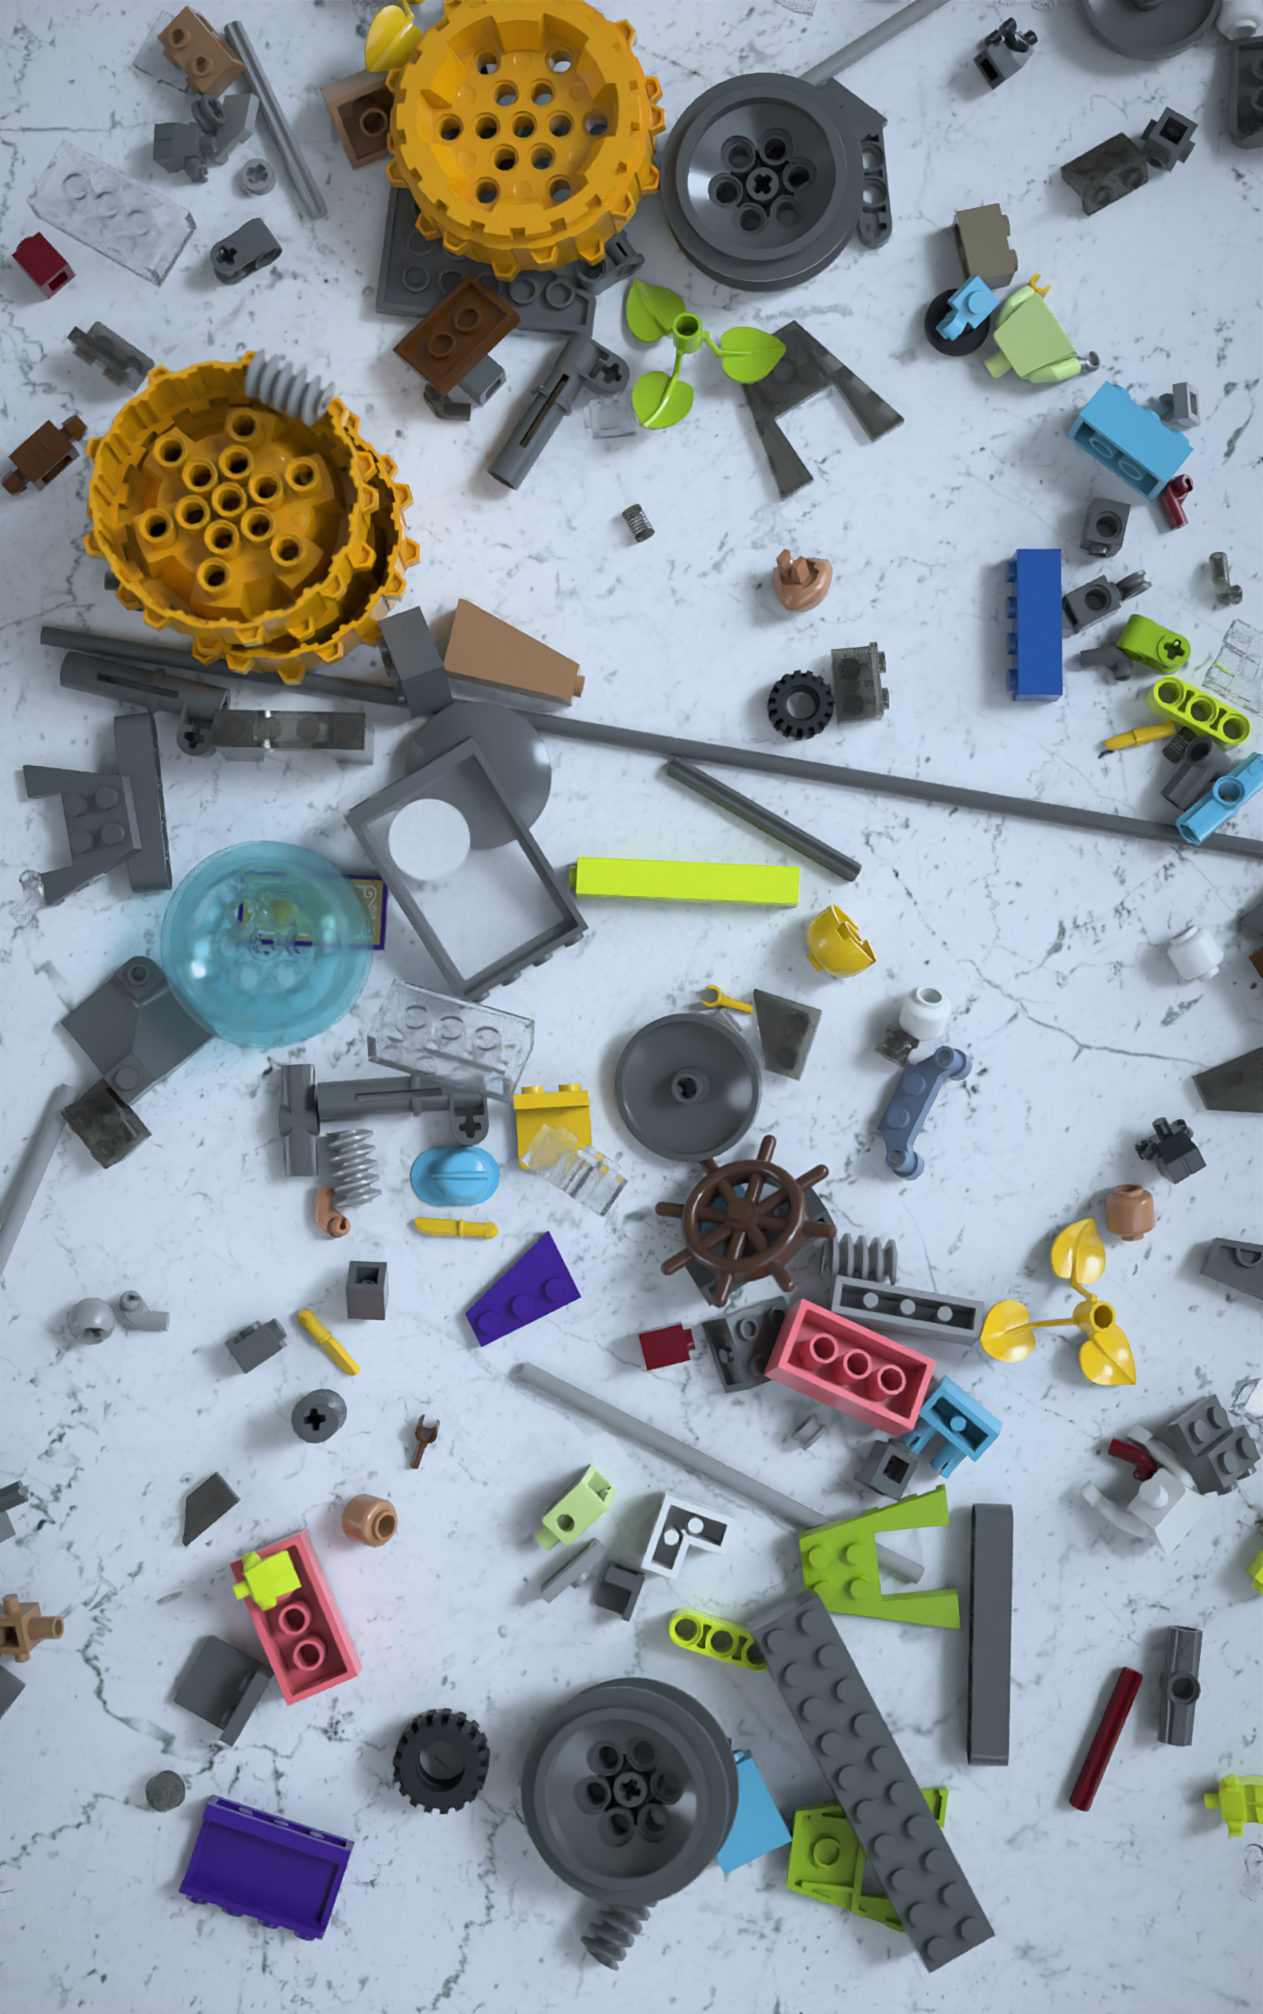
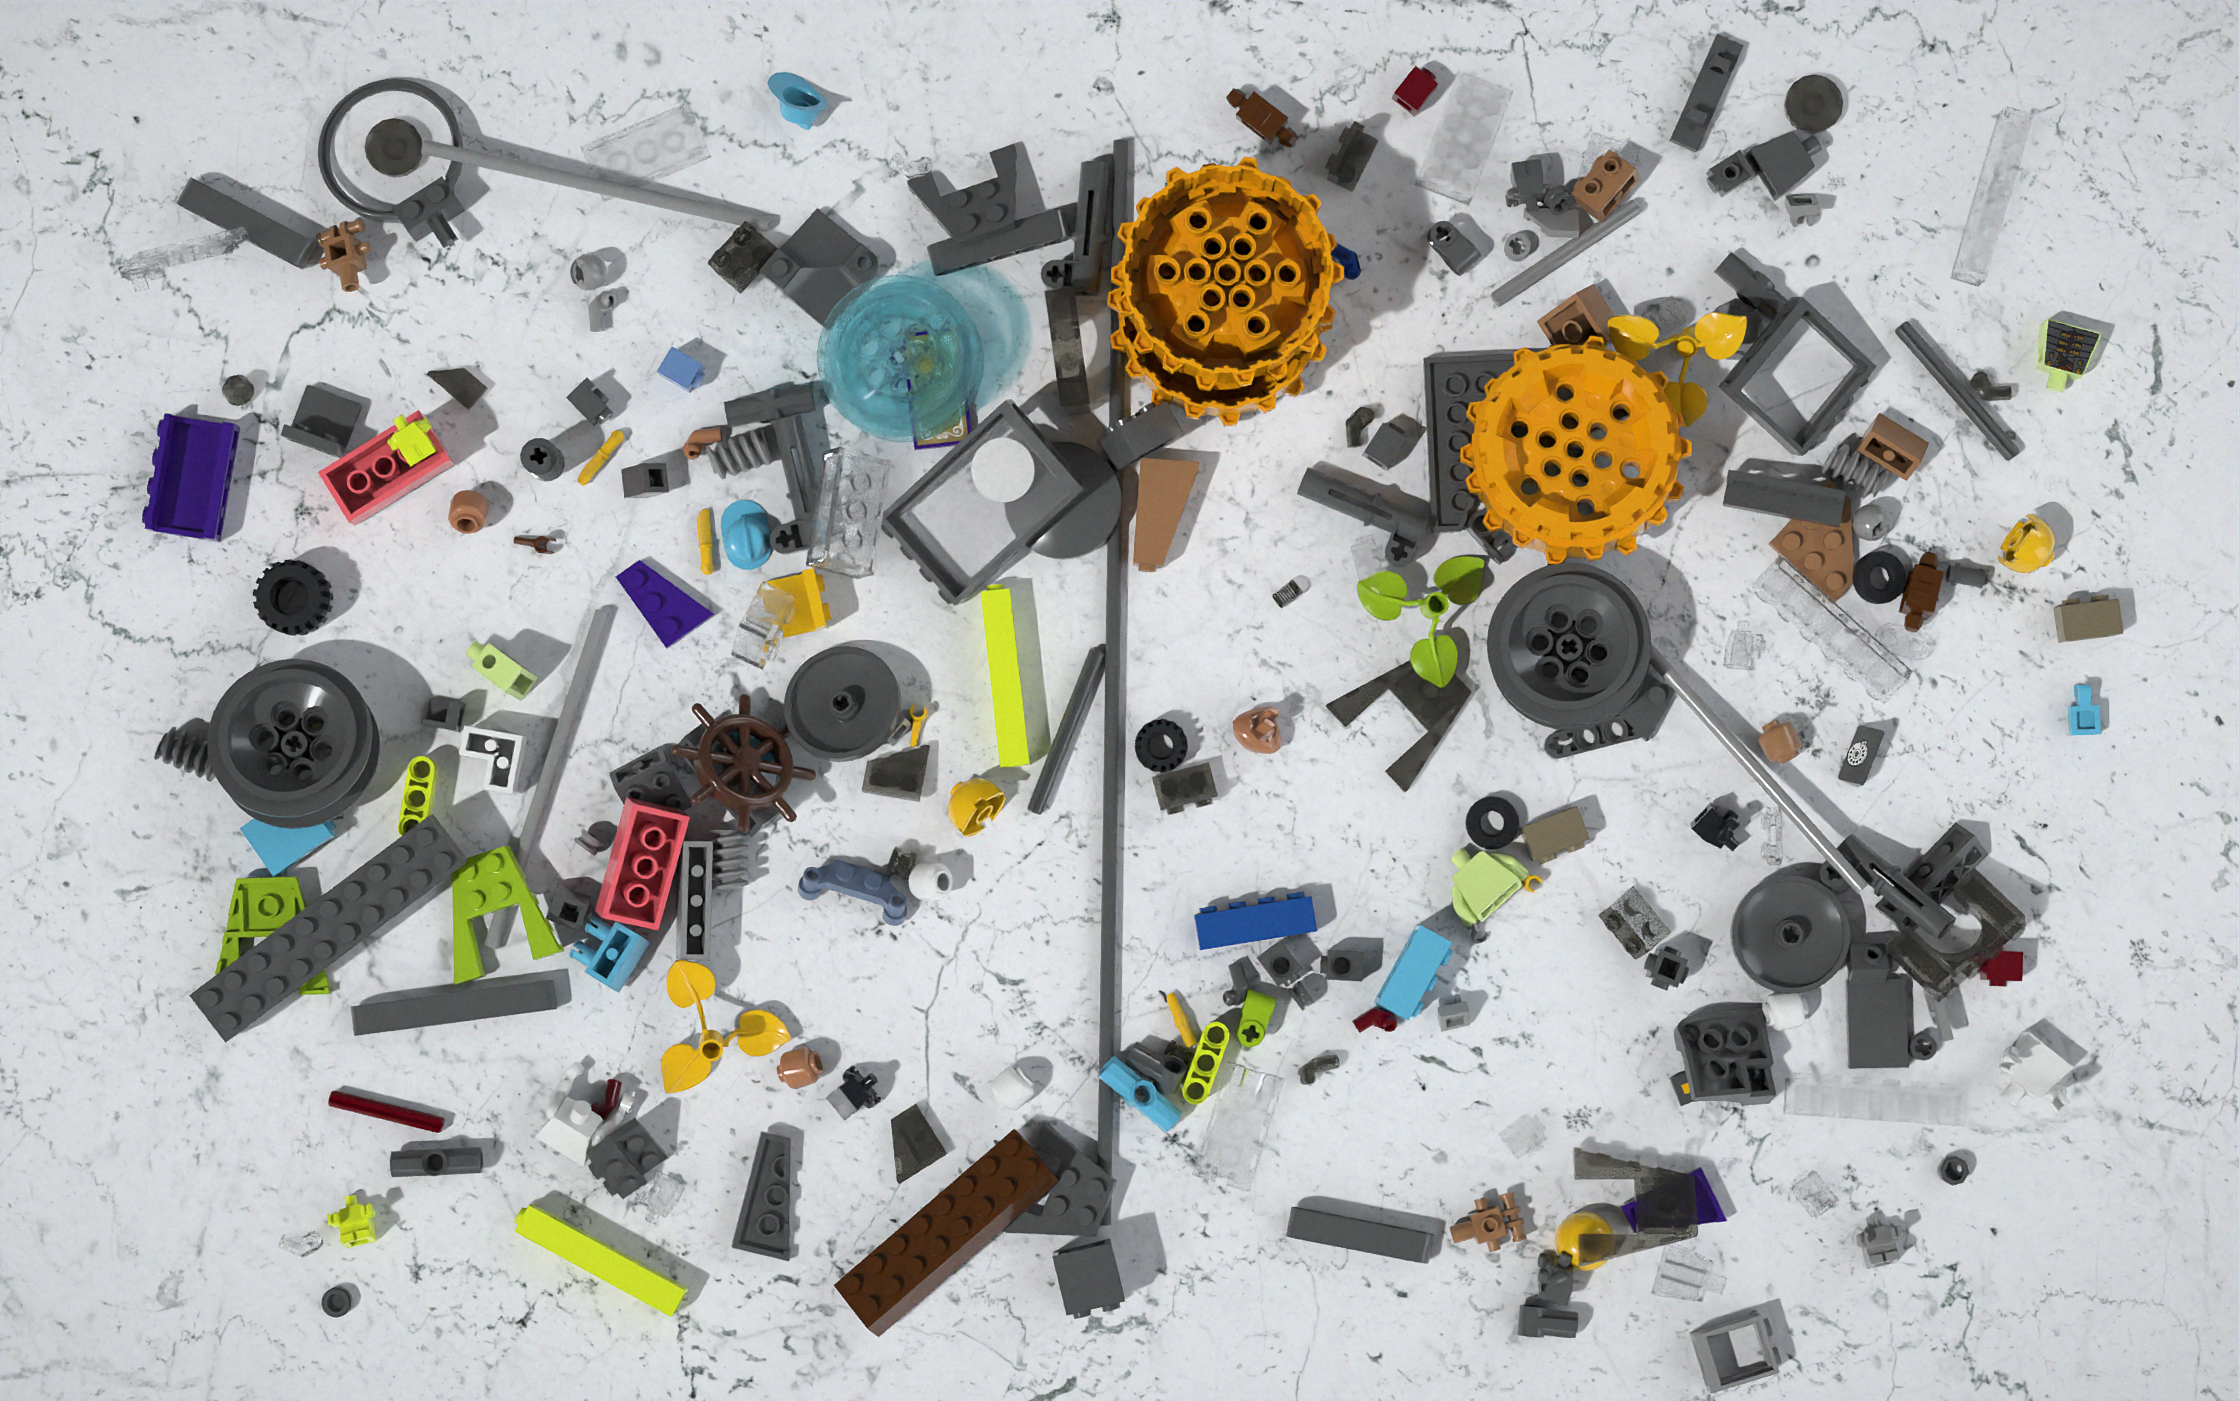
camera: 75 degrees right, 0 degrees up
(235, 1222) = (682, 370): none -> medium blue brick
(287, 390) = (1312, 303): light grey piece -> none
(456, 335) = (1409, 425): reddish brown tile -> none
(574, 1571) = (452, 676): light grey plate -> none
(666, 1345) = (638, 719): dark red brick -> none
(970, 307) = (1502, 830): medium azure plate -> none

